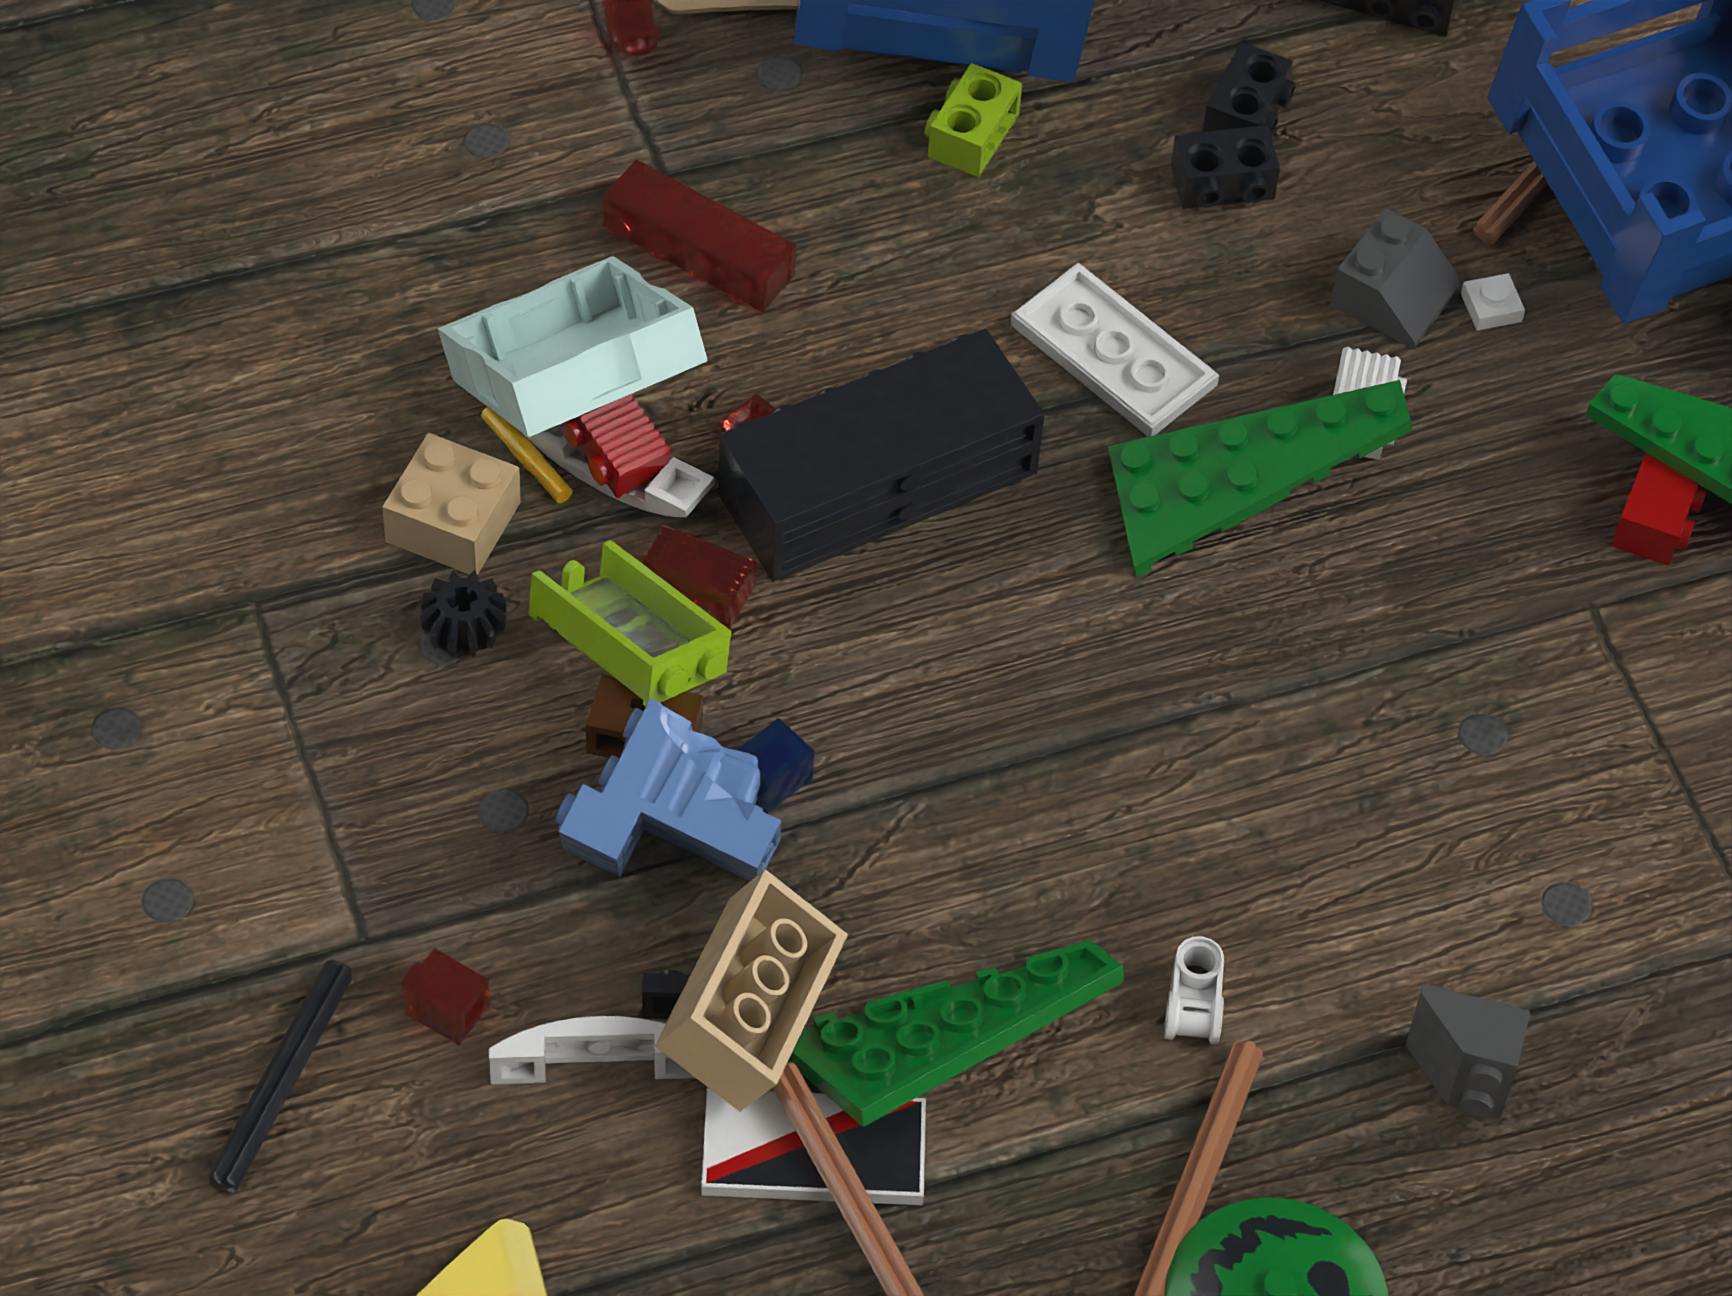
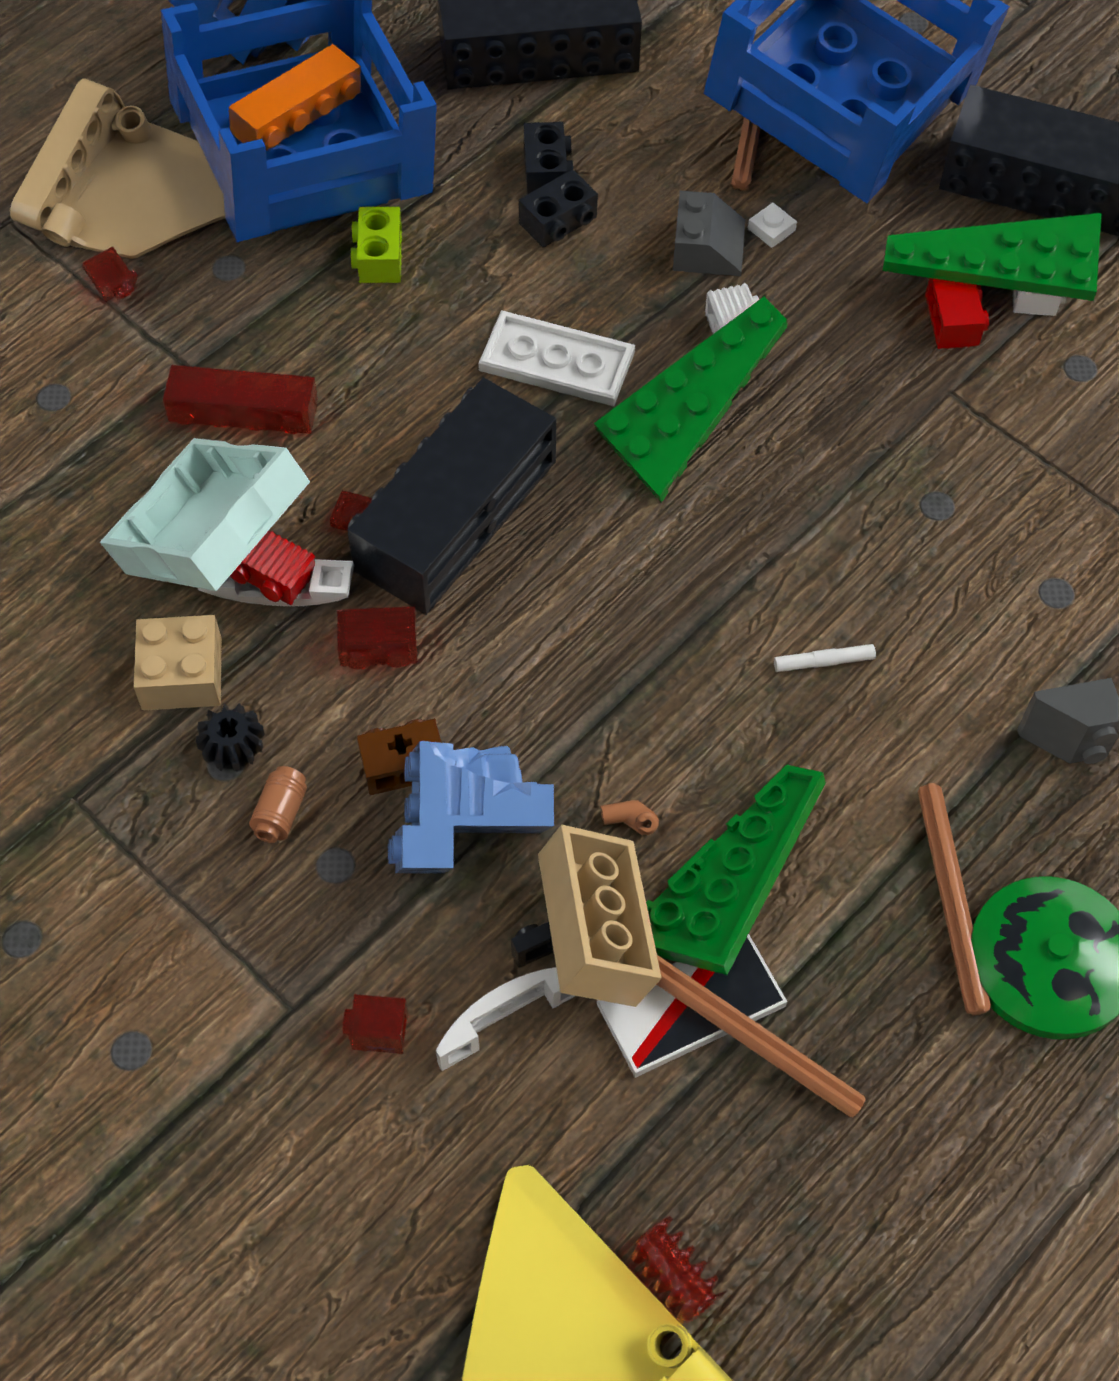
camera: 25 degrees left, 5 degrees up
(280, 1077) = (291, 1146): black axle -> none
(474, 712) = (278, 804): none -> nougat head
(528, 456) = (208, 603): yellow piece -> none
(633, 625) = (358, 690): lime door -> none
(783, 763) = (511, 732): clear blue brick -> none
(874, 911) = (632, 814): none -> nougat arm
(1196, 999) = (879, 774): white piece -> none
(1219, 845) = (824, 658): none -> white piece

